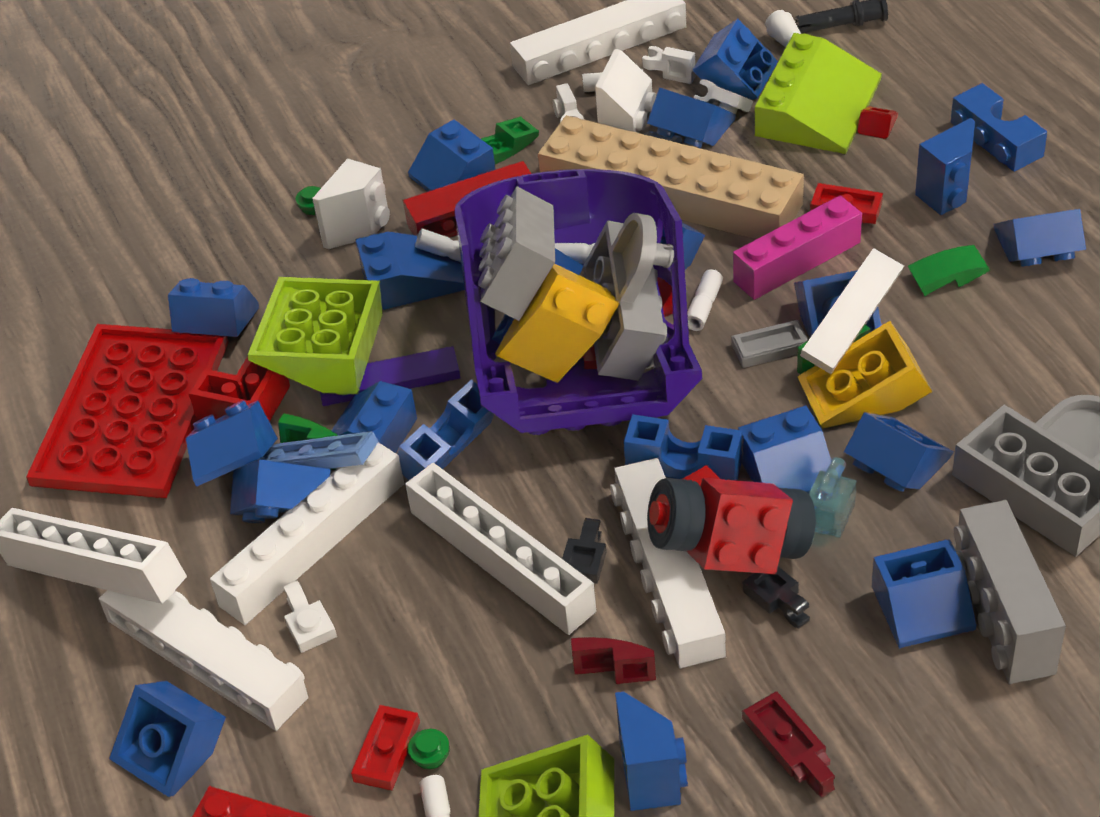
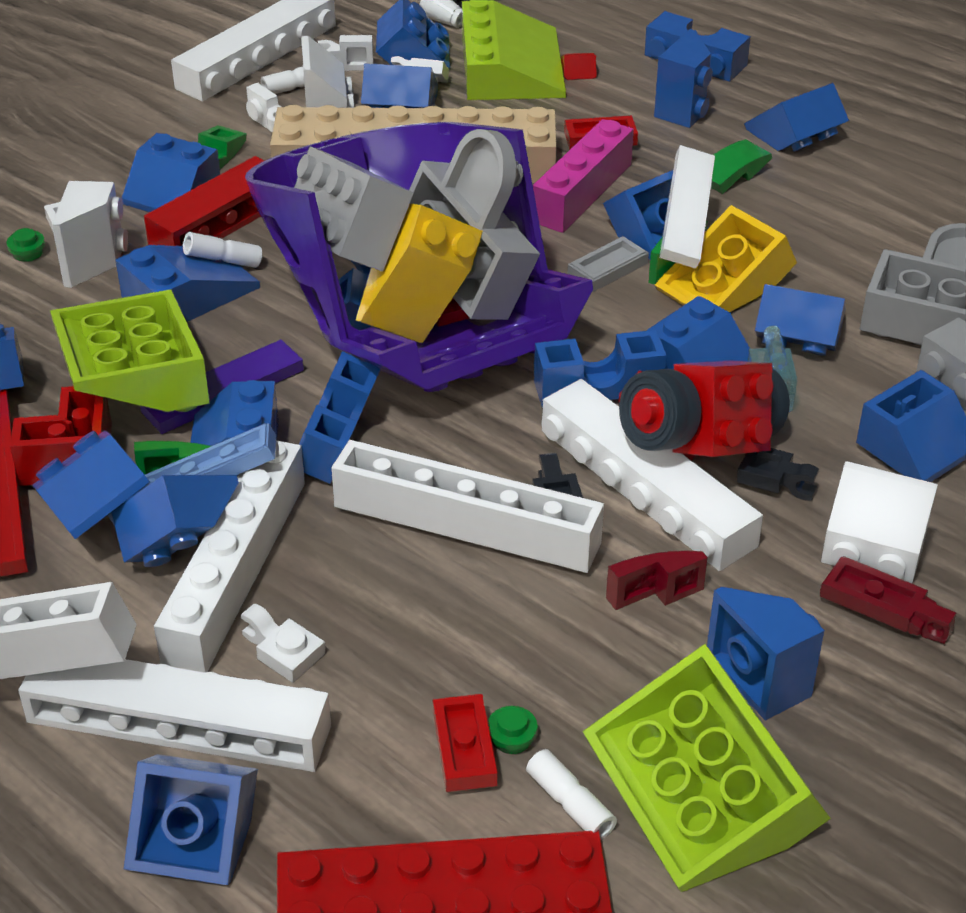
camera: 30 degrees left, 5 degrees down
(819, 674) = (879, 520): none -> white slope

